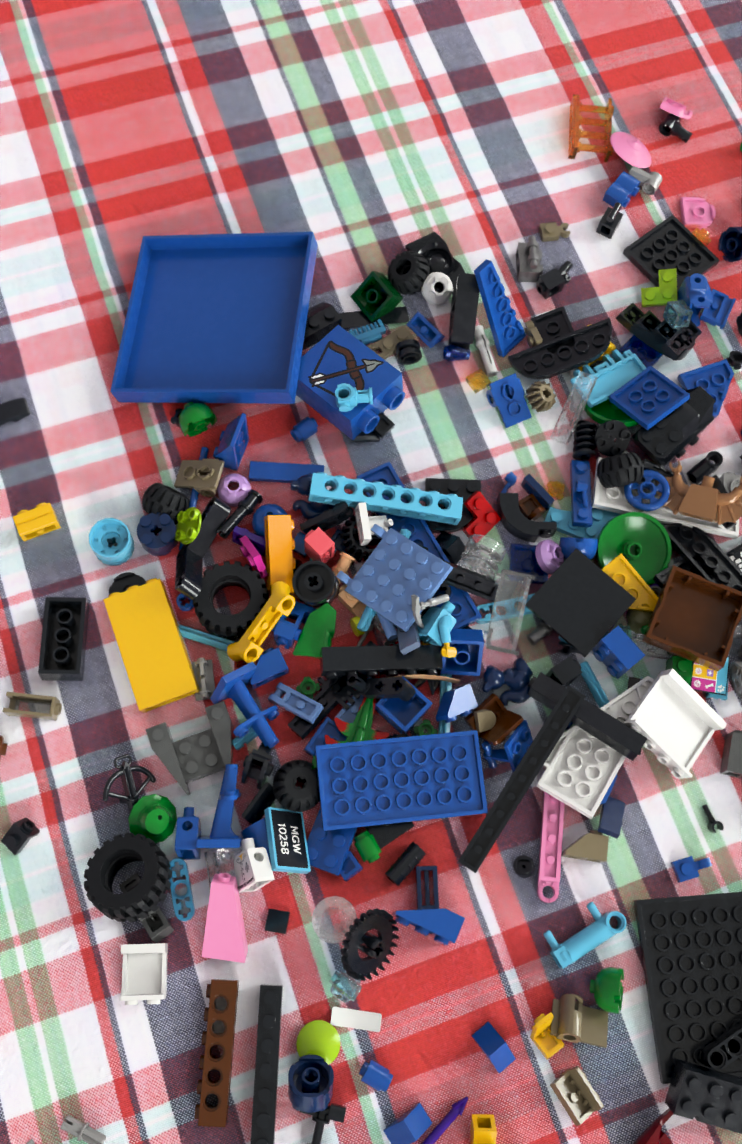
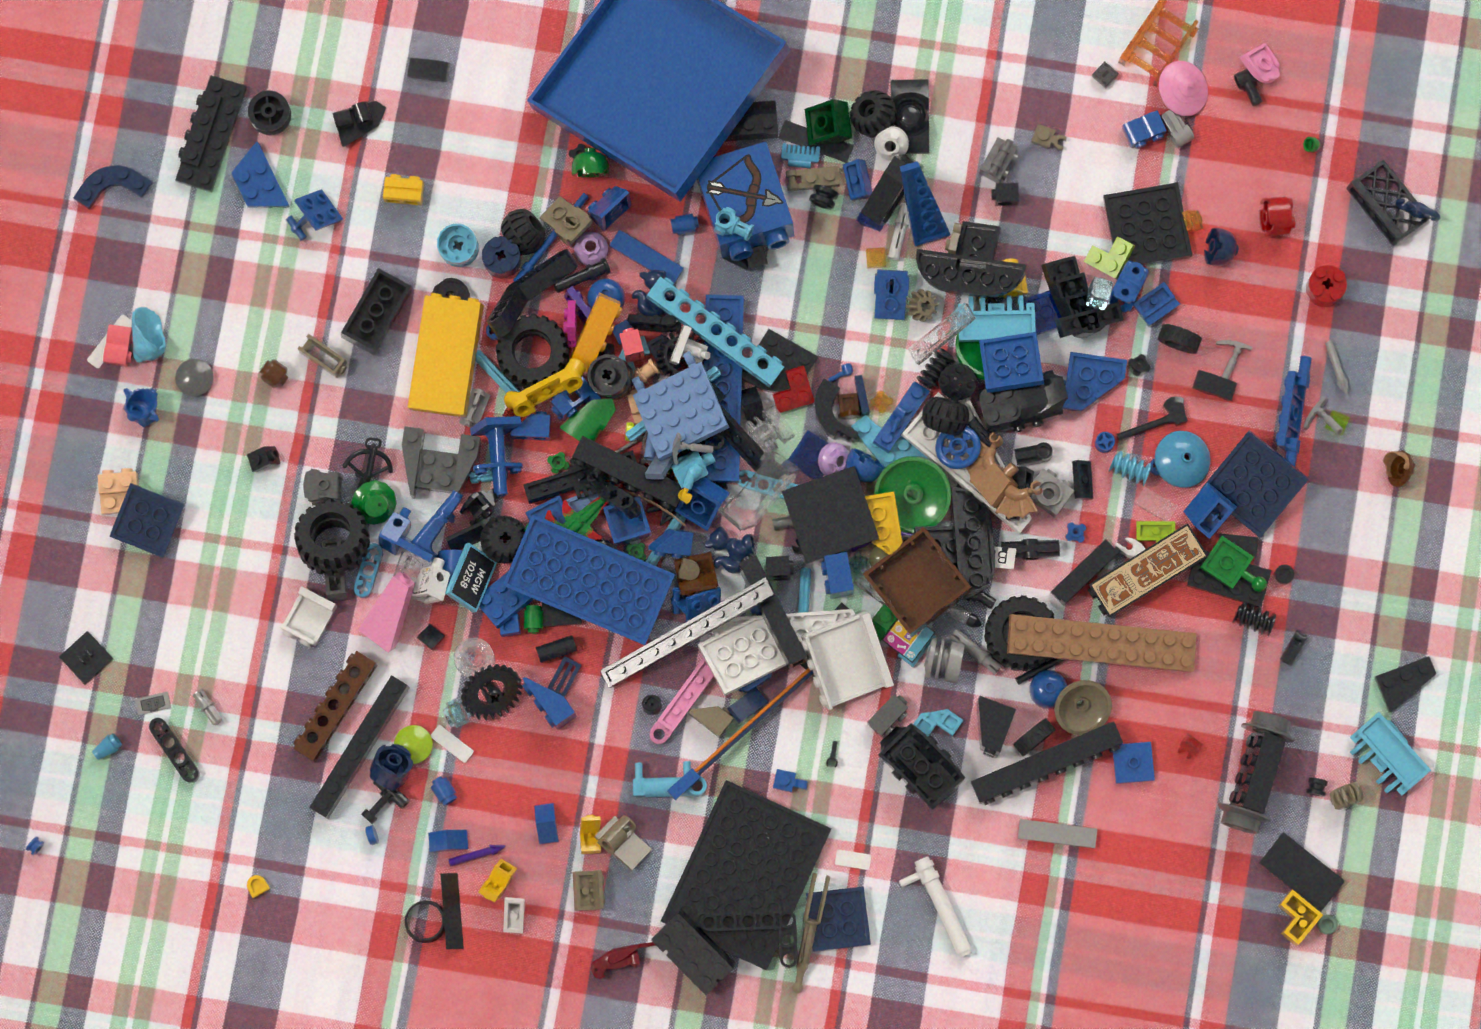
camera: 40 degrees right, 10 degrees up
(92, 831) = (322, 486): none -> dark grey piece
(188, 525) = (530, 265): lime dish -> none
(296, 703) = (539, 470): medium blue plate -> none
(564, 269) = (1028, 187): black arm -> none
(565, 169) = (1105, 74): none -> black tile
(608, 916) = (692, 777): none -> piece
(608, 989) = (661, 831): green cylinder -> none
(610, 221) = (1108, 158): black brick -> none
(696, 212) = (1209, 191): bright pink tile -> none

